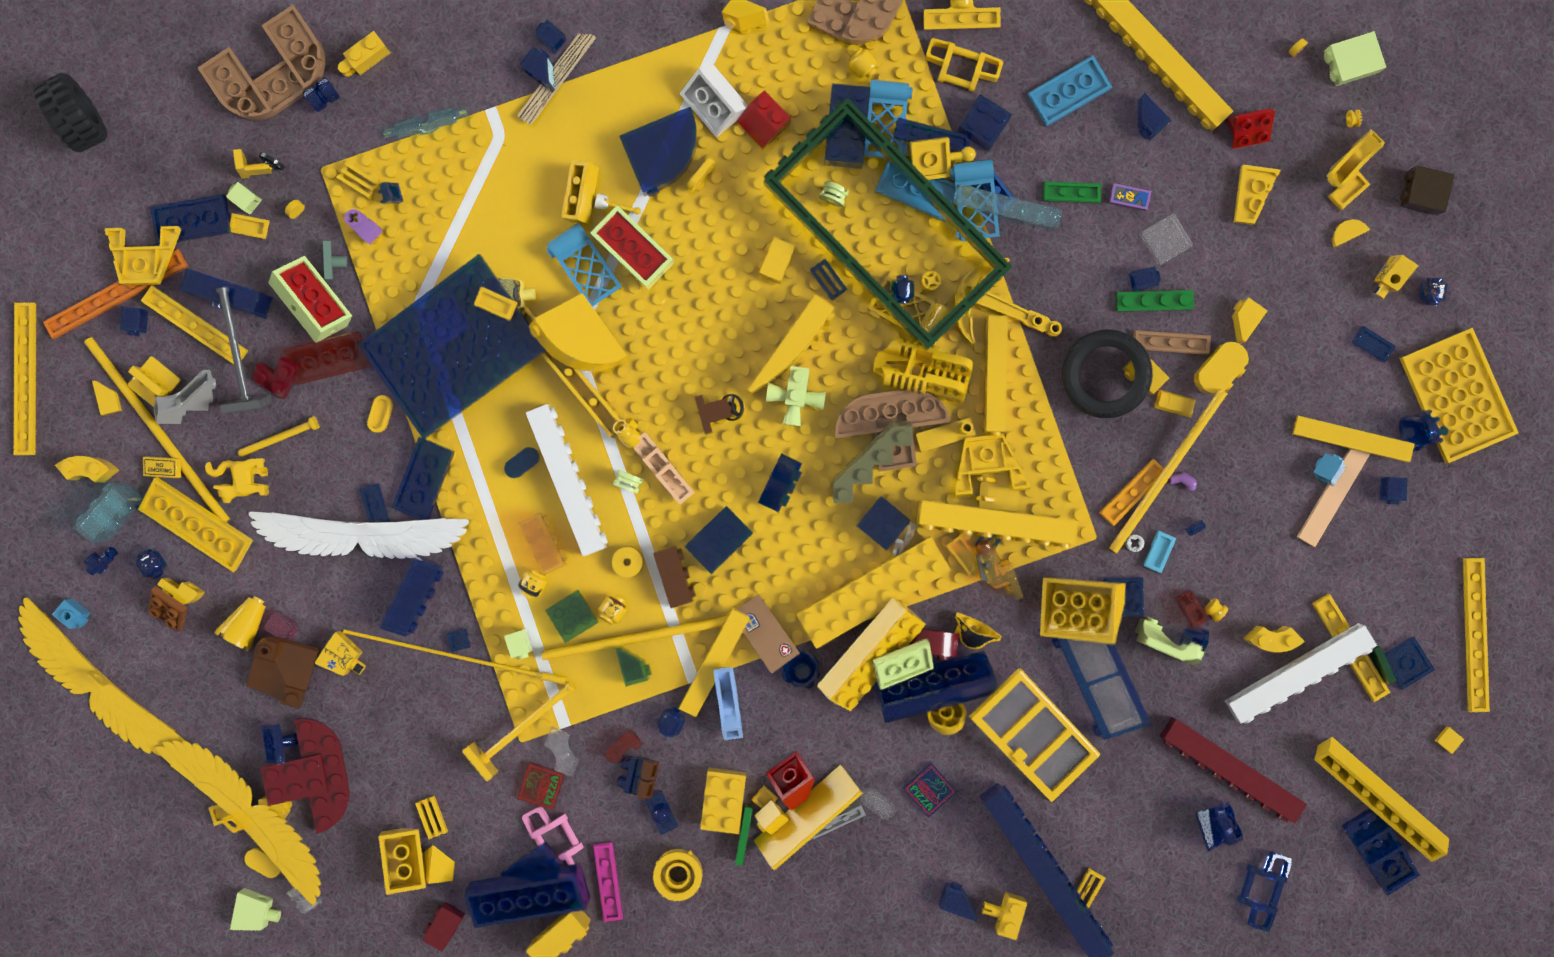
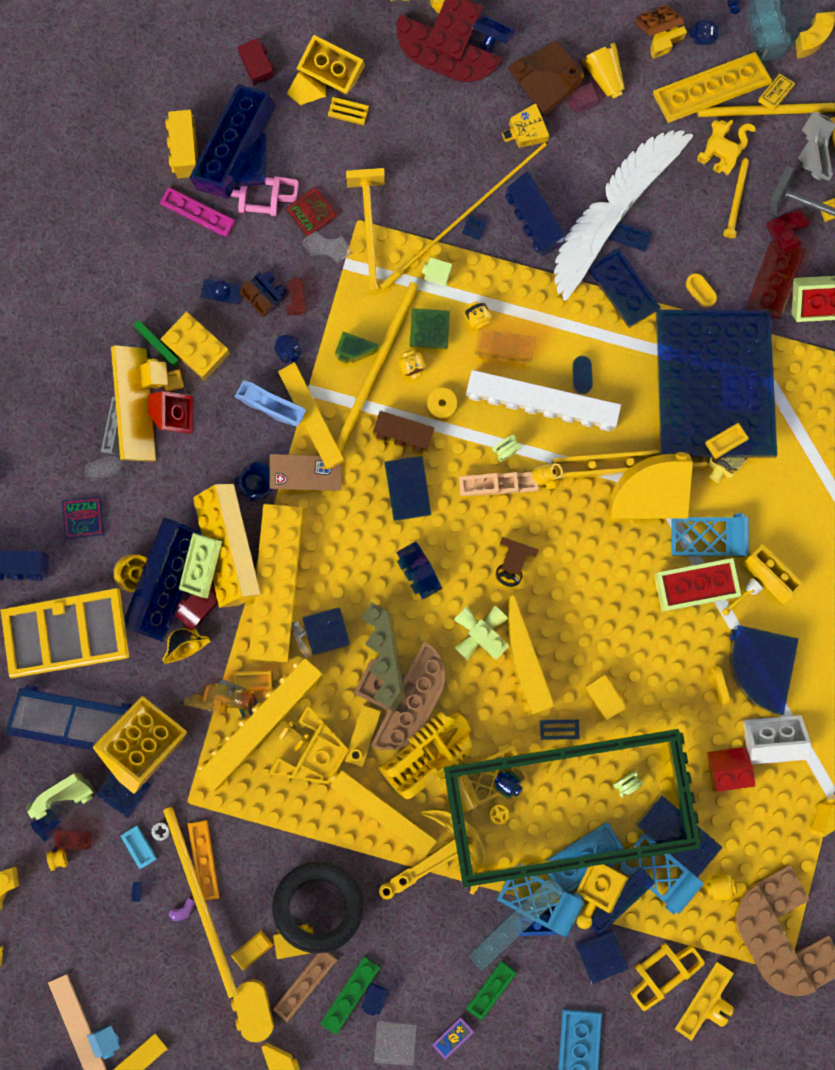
camera: 120 degrees right, 5 degrees down
(677, 890) = (153, 258): yellow piece -> none

